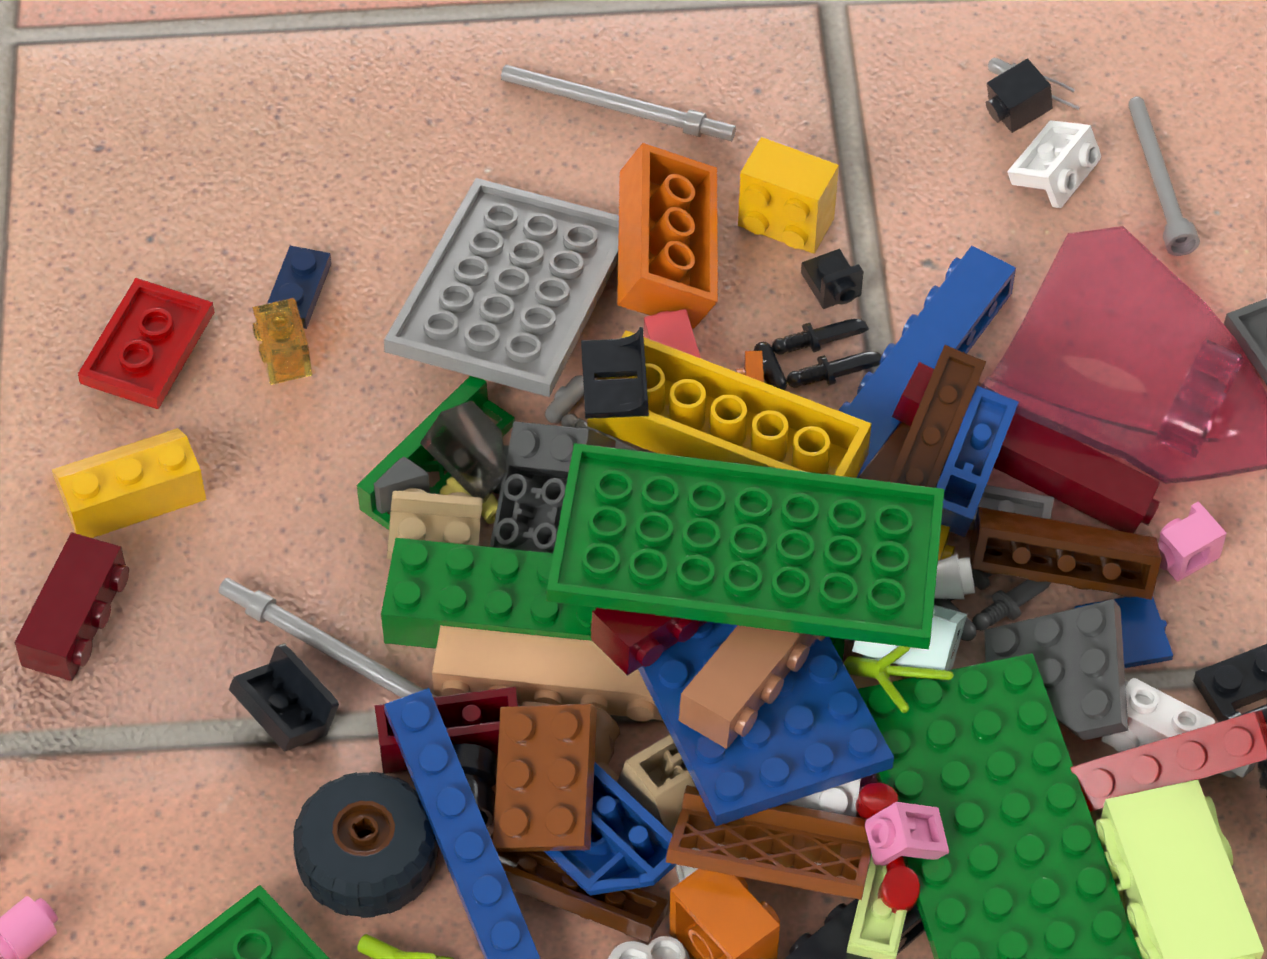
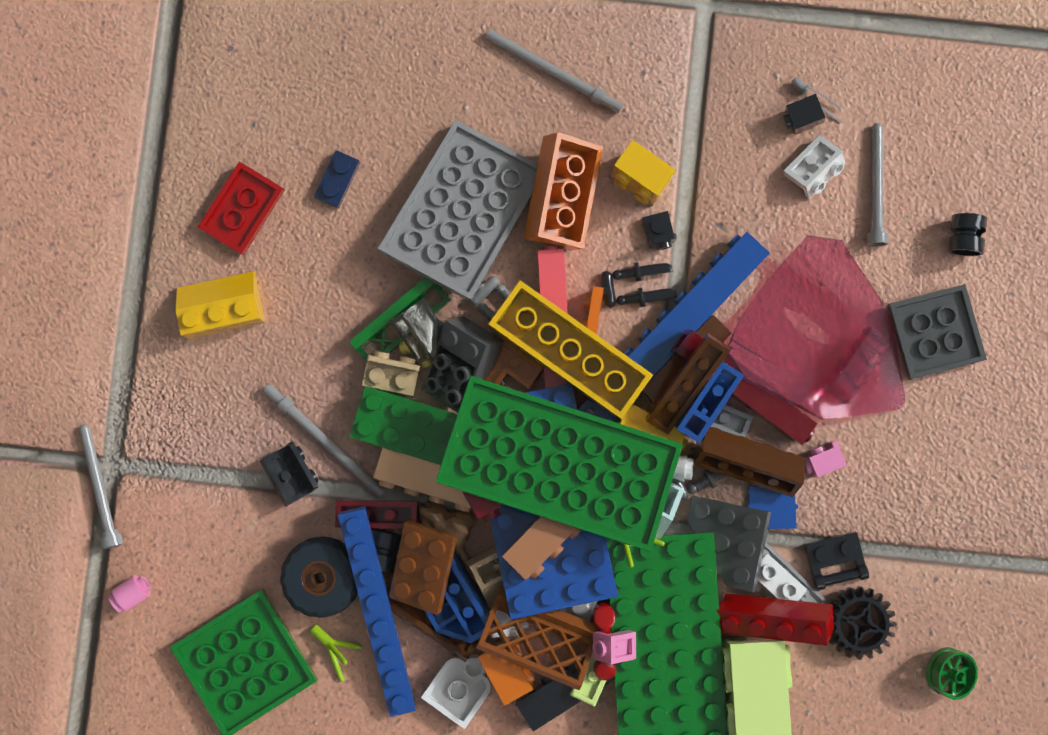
camera: 10 degrees right, 30 degrees up
(72, 607) = (178, 390): dark red brick -> none
(281, 341) = (321, 214): clear yellow head -> none
(399, 477) = (374, 342): dark grey slope -> none
(615, 359) = (506, 305): black piece -> none

